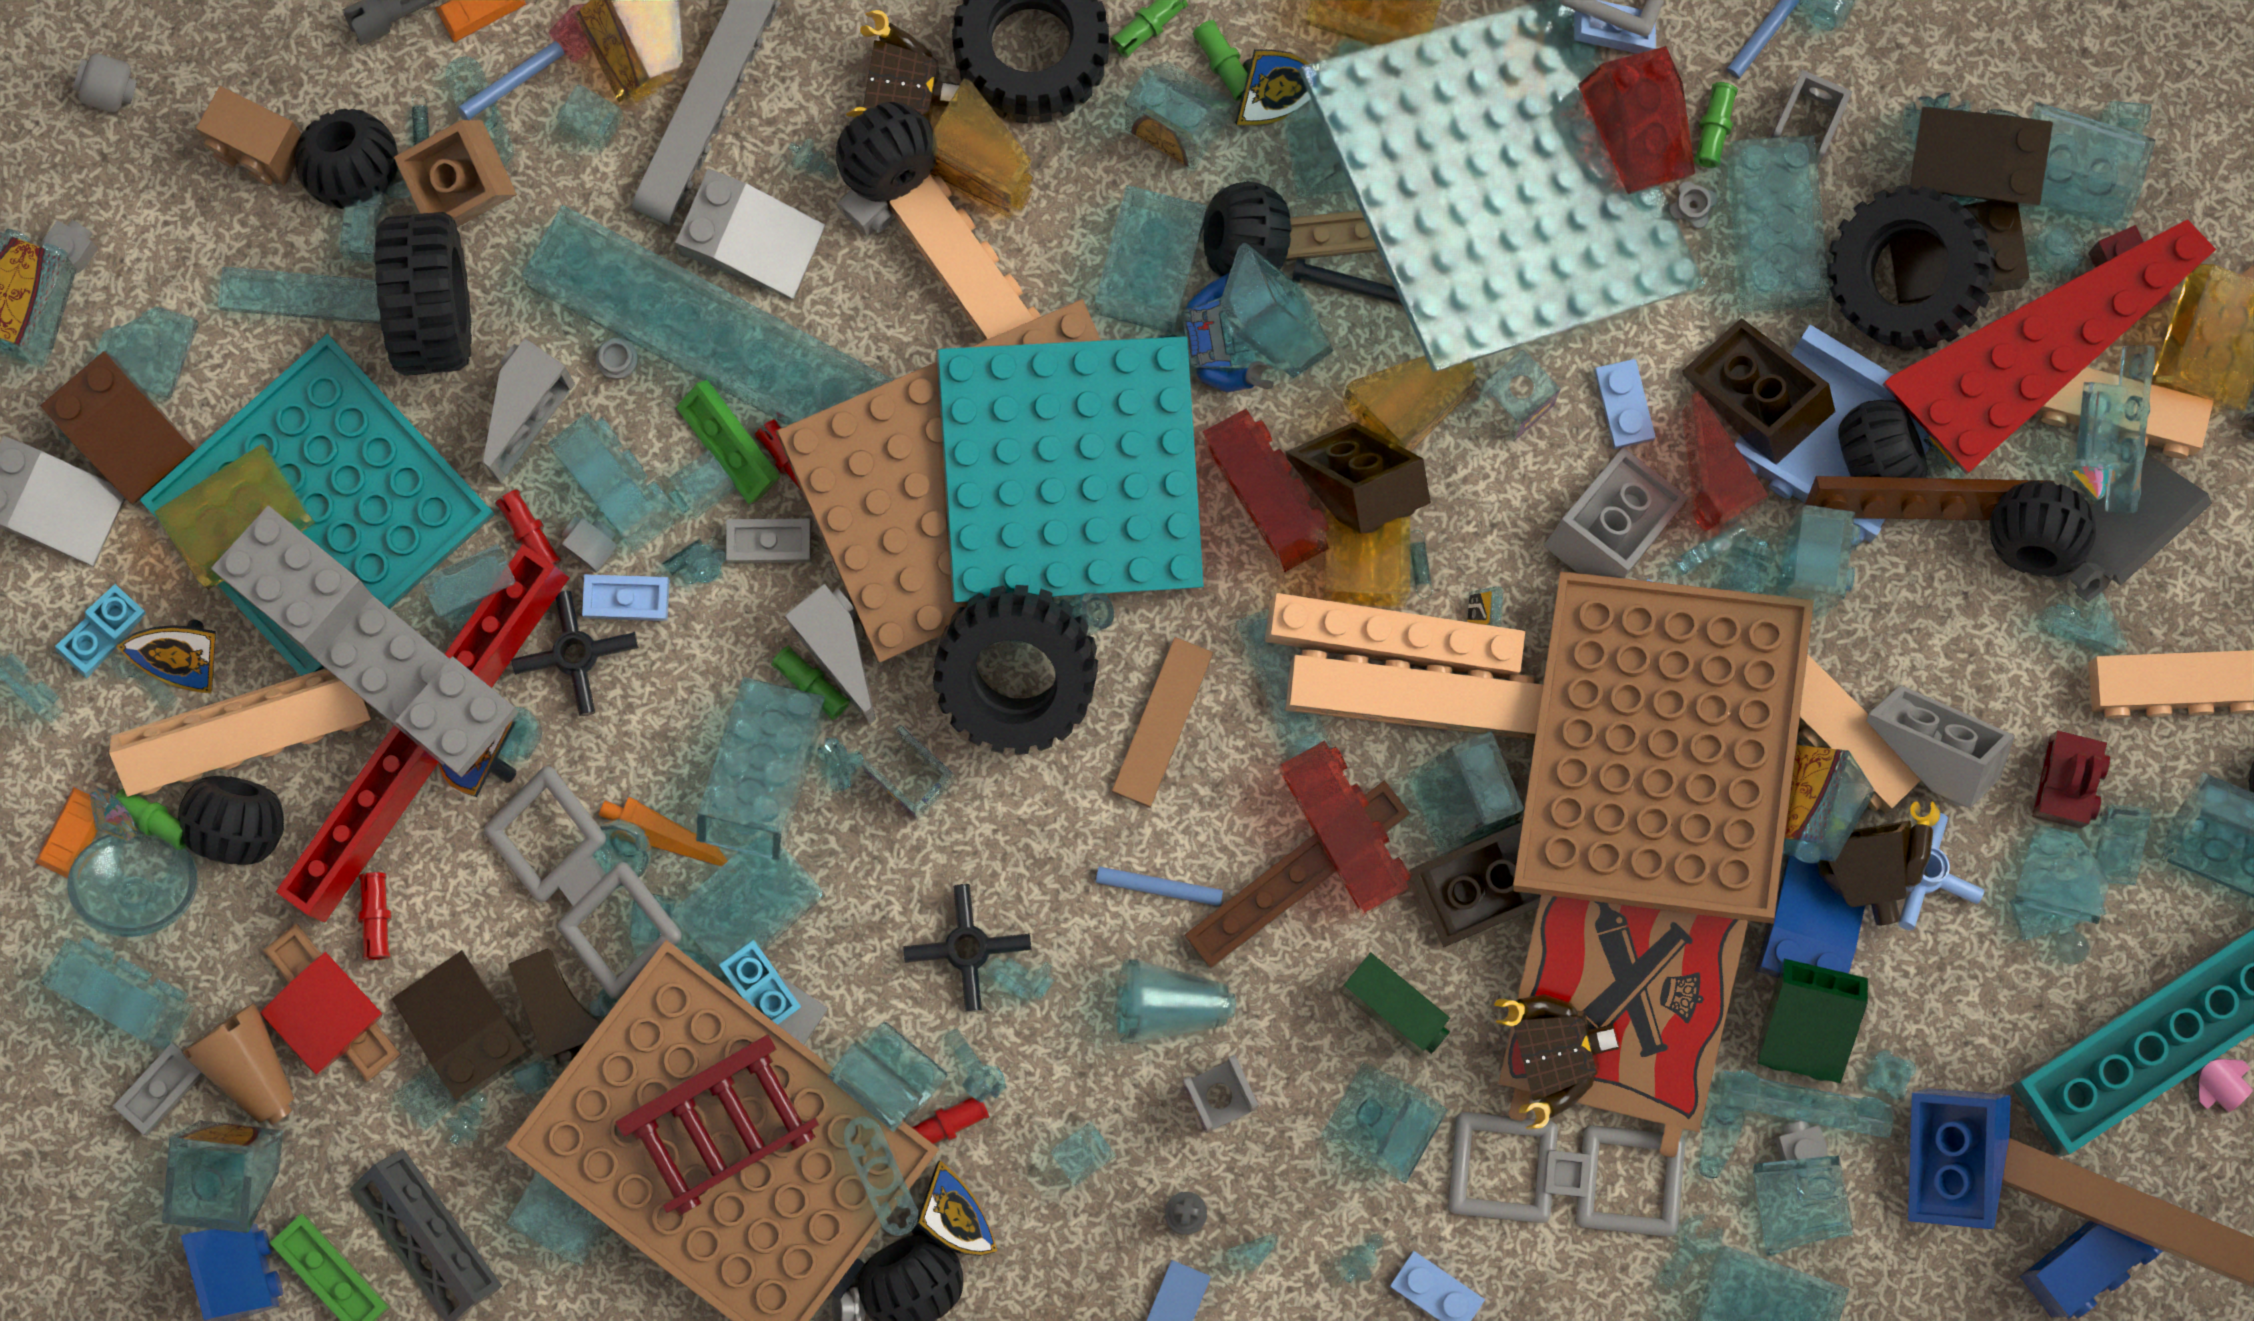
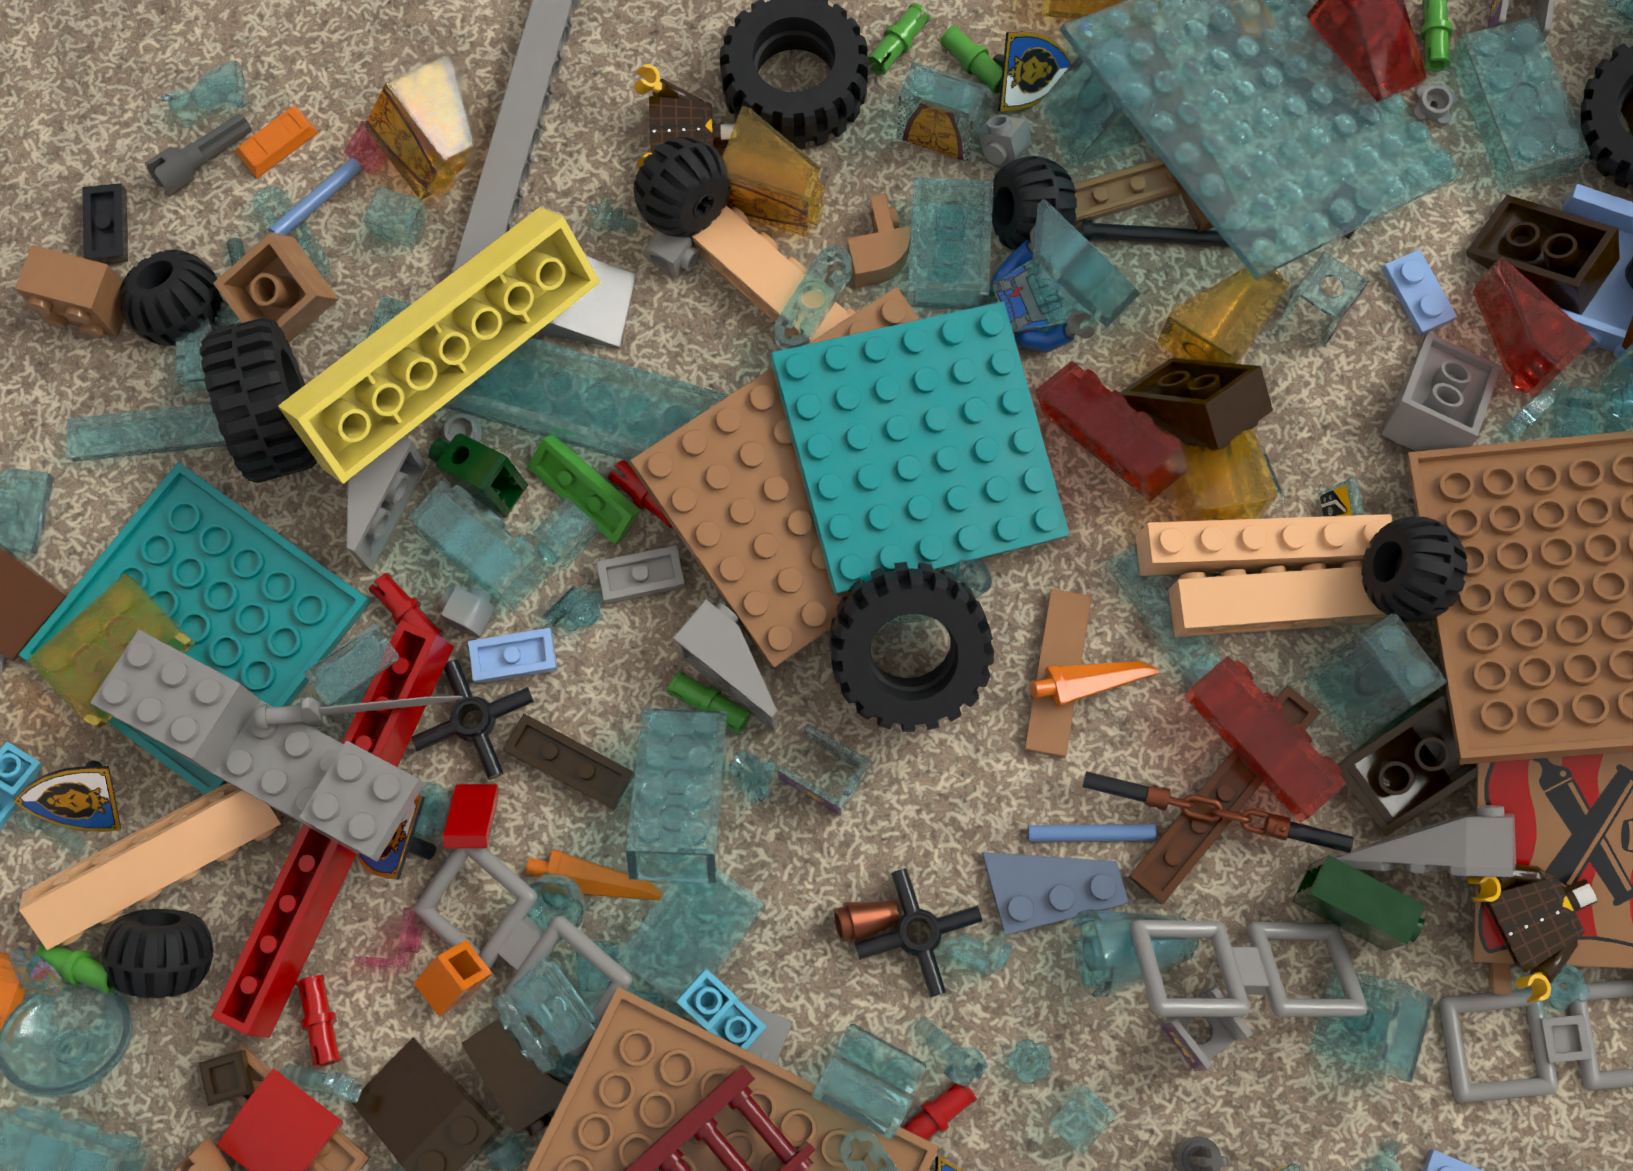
camera: 10 degrees left, 5 degrees down
(278, 952) = (226, 1077): none -> dark brown tile
(291, 64) = (105, 223): none -> black plate
(379, 977) = (332, 1082): none -> clear light blue bar
(421, 620) = (312, 712): none -> light grey sword
(474, 859) = (409, 943): none -> clear pink bracket
(510, 901) = (452, 977): none -> orange brick
(556, 748) = (471, 816): none -> red tile
(604, 948) = (555, 1006): none -> clear light blue plate
(613, 276) = (440, 344): none -> light yellow brick
(625, 405) = (480, 471): none -> dark green torso
(661, 714) = (568, 761): none -> dark brown plate
(917, 924) = (863, 919): none -> copper cone
(1010, 264) = (837, 282): none -> clear light blue beam
(1045, 1080) = (1041, 1056): none -> clear light blue plate
(1082, 255) = (882, 253): none -> medium nougat brick
(1105, 932) = (1050, 889): none -> sand blue wing
(1178, 735) = (1081, 681): none -> orange bar
(1232, 157) = (1004, 139): none -> light grey plate
(1270, 1044) = (1246, 969): none -> light grey bar
(1334, 915) = (1274, 825): none -> piece
(1507, 971) = (1467, 843): none -> light grey wedge
(1522, 692) = (1414, 568): none -> black wheel
(1585, 1116) = (1575, 990): none -> clear light blue plate

